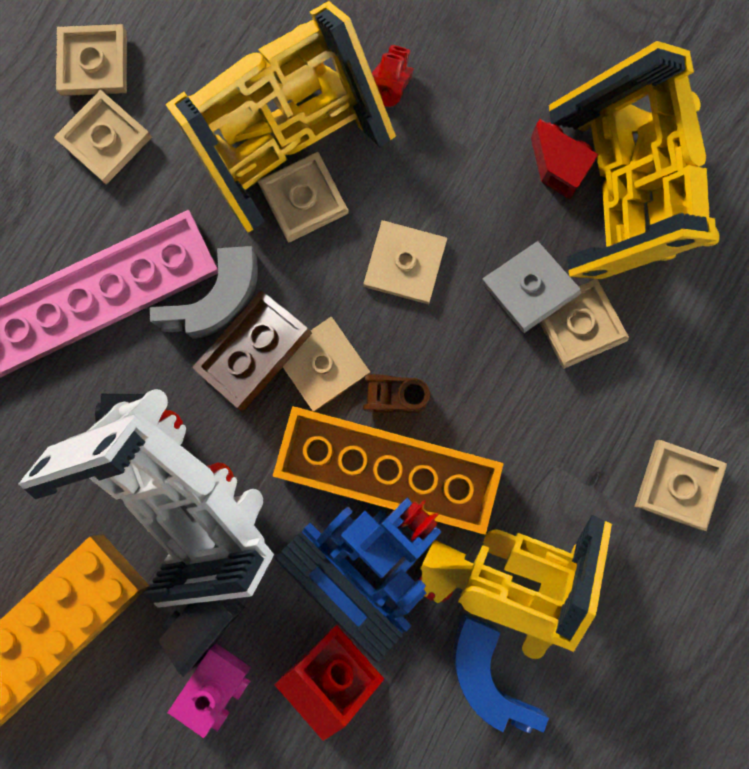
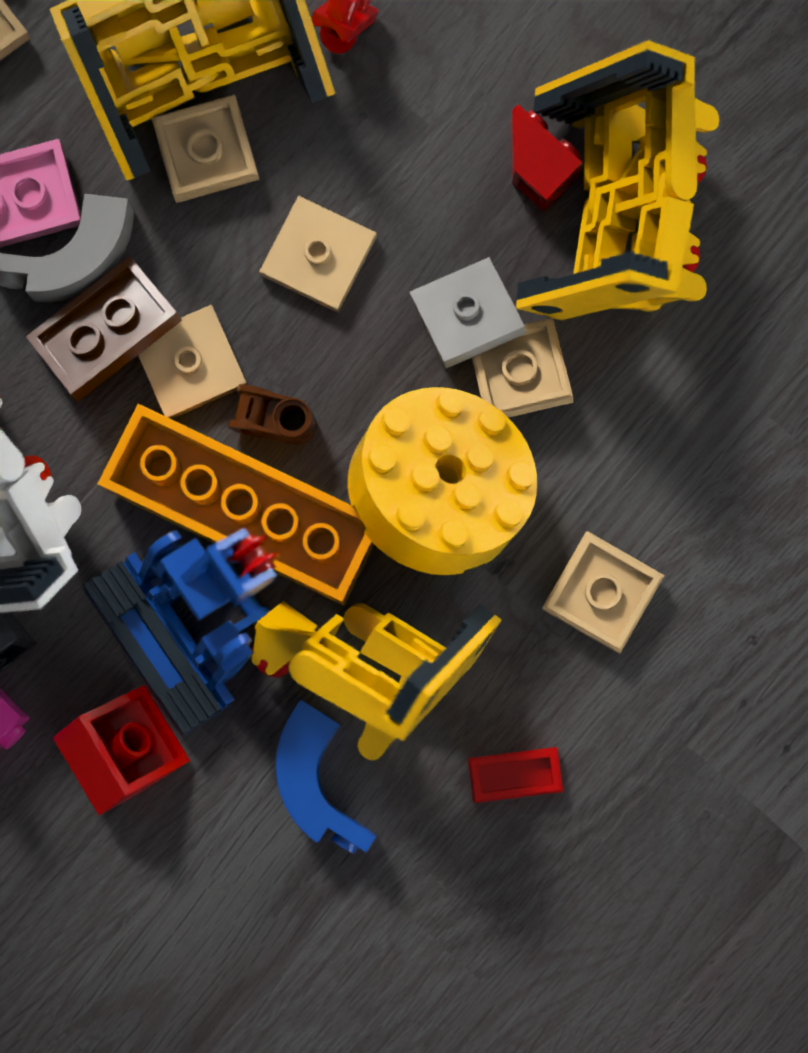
camera: 10 degrees right, 0 degrees up
(545, 424) = (442, 480): none -> yellow brick
(641, 642) = (515, 775): none -> red tile

